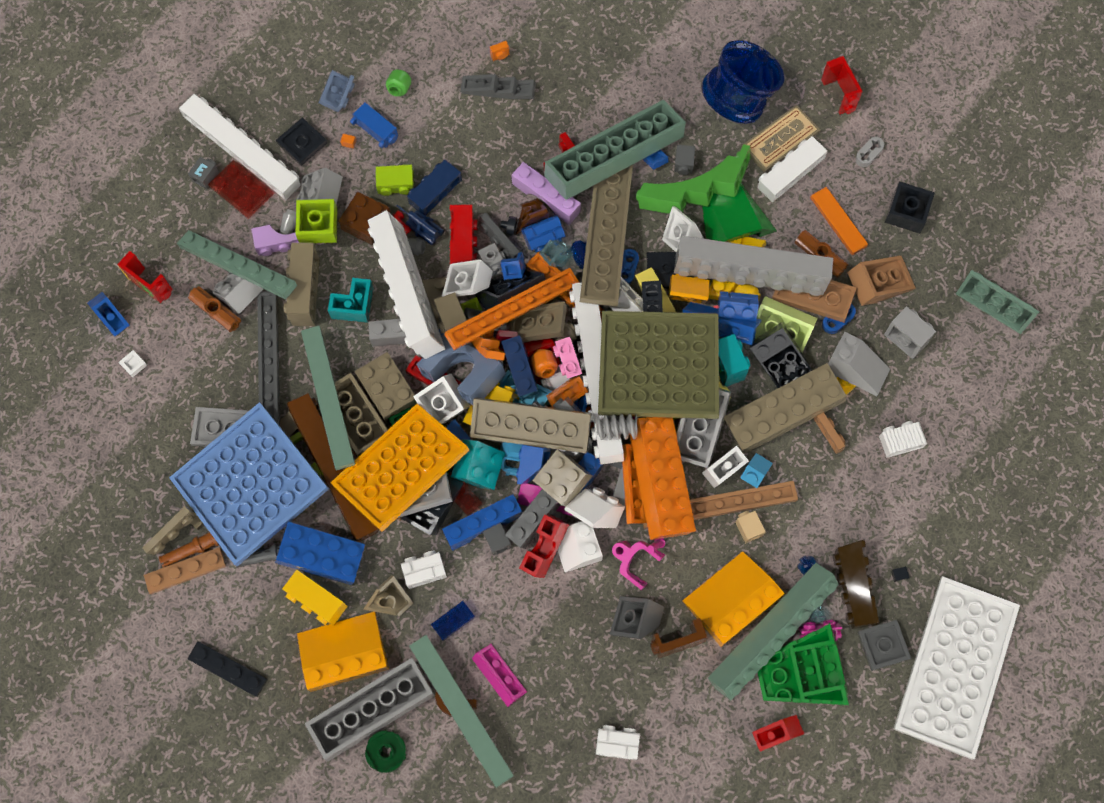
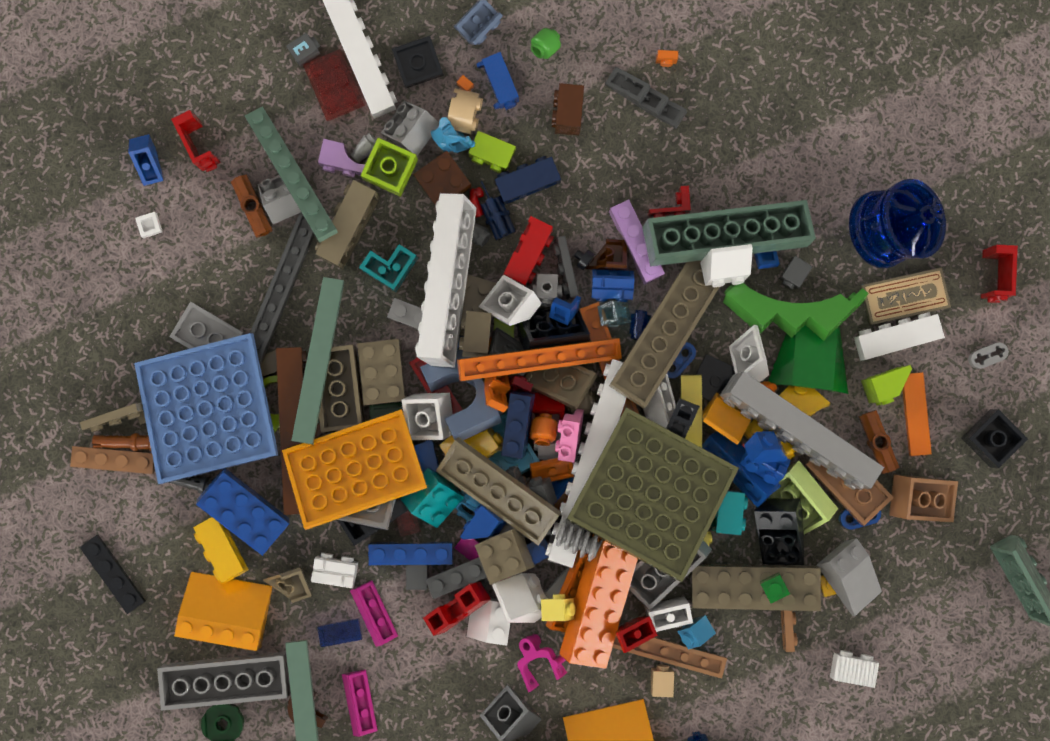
camera: 25 degrees right, 15 degrees up
(354, 180) = (449, 139): none -> dark azure helmet
(356, 157) = (464, 110): none -> tan brick
(440, 119) = (569, 109): none -> reddish brown brick
(474, 591) = (374, 613): none -> dark pink slope
(626, 170) = (727, 265): none -> white slope
(629, 497) = (558, 608): none -> light yellow brick
(706, 488) = (635, 633): none -> red slope
(731, 289) = (765, 448): none -> blue slope
(798, 392) = (774, 588): none -> green brick
(800, 206) = (886, 385): none -> lime slope
(910, 332) = (921, 570): light grey brick -> none

